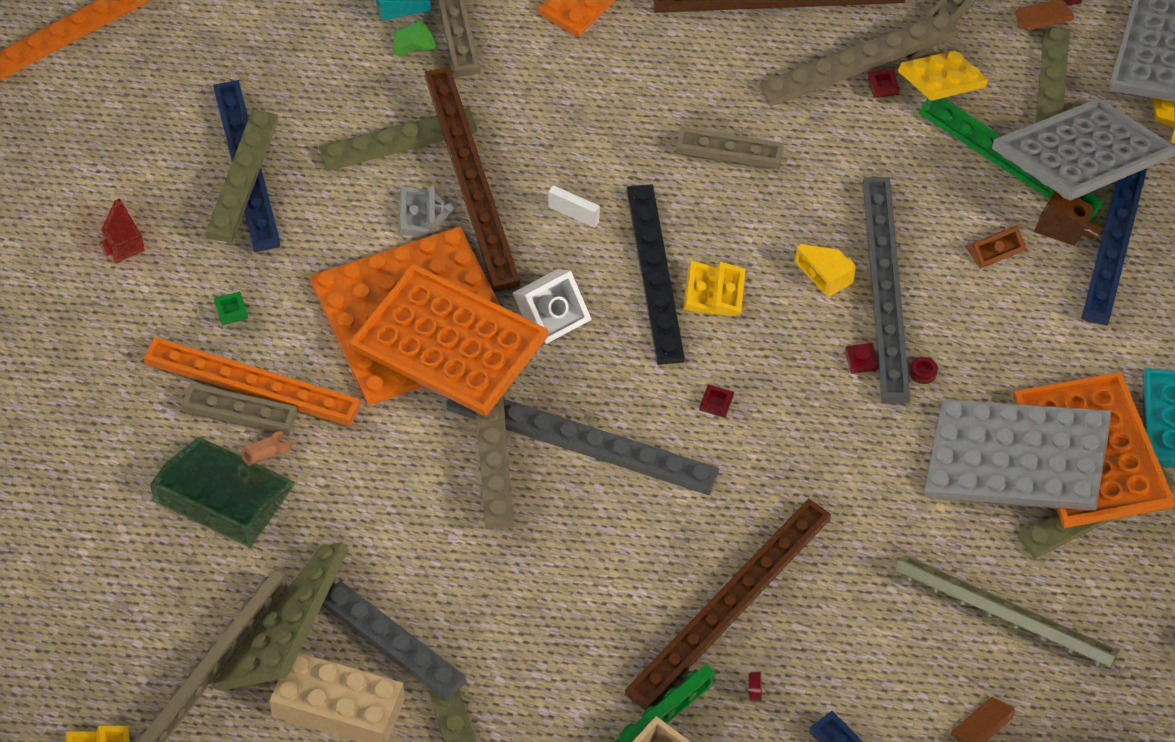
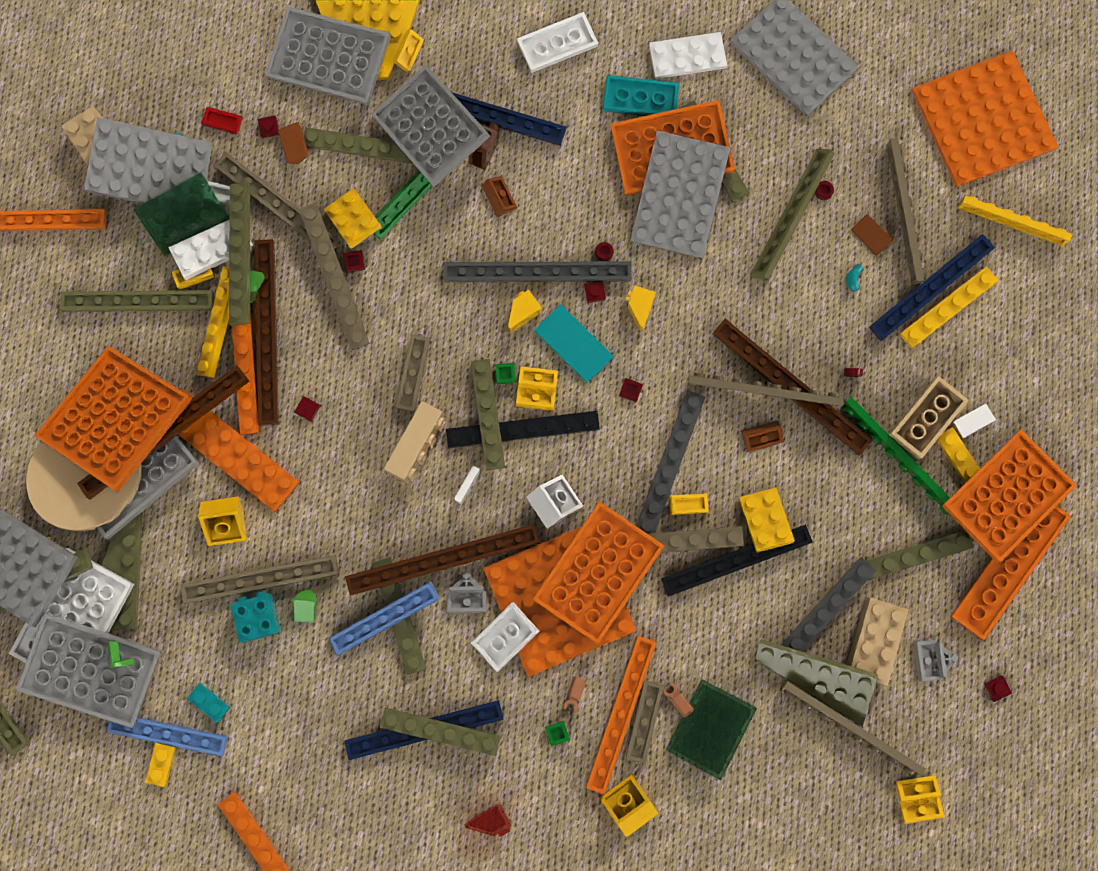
camera: 90 degrees left, 25 degrees up
(124, 387) = (629, 805): none -> yellow slope
(282, 329) = (575, 692): none -> nougat bar
(364, 247) = (505, 637): none -> white tile
(394, 118) = (384, 618): none -> medium blue tile
(465, 527) = (729, 563): none -> black plate
(524, 561) = (766, 520): none -> yellow plate
(548, 466) = (688, 504): none -> yellow tile
(629, 142) = (415, 443): none -> tan brick
(652, 566) = (762, 436): none -> dark orange slope
(673, 226) = (488, 414): none -> olive plate
(676, 40) = (307, 408): none -> dark red tile
(719, 565) = (773, 390): none -> dark tan plate
(734, 250) = (505, 373): none -> green plate
(782, 332) = (573, 343): none -> teal tile
(841, 408) = (640, 304): none -> yellow slope
(912, 693) = (852, 279): none -> teal arm
(1051, 660) = (824, 190): none -> dark red tile

